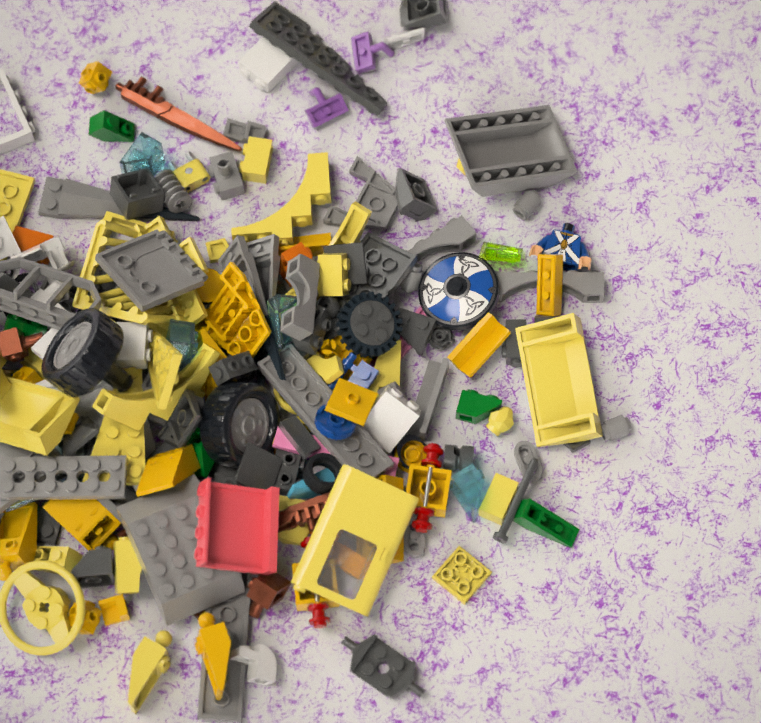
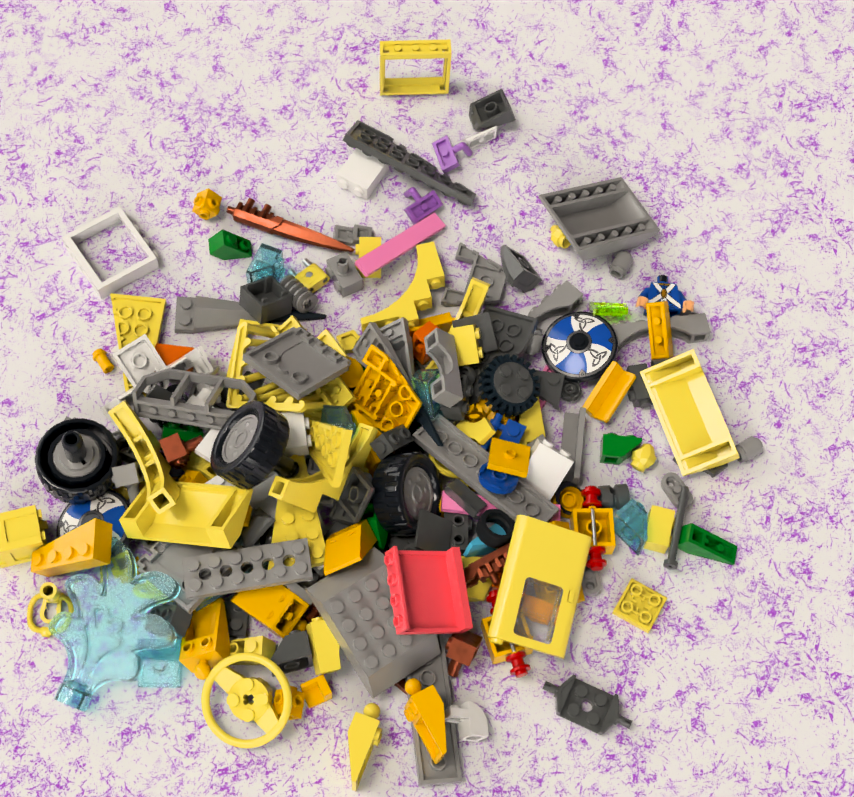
camera: 15 degrees left, 5 degrees down
(291, 150) = (399, 244): none -> bright pink tile

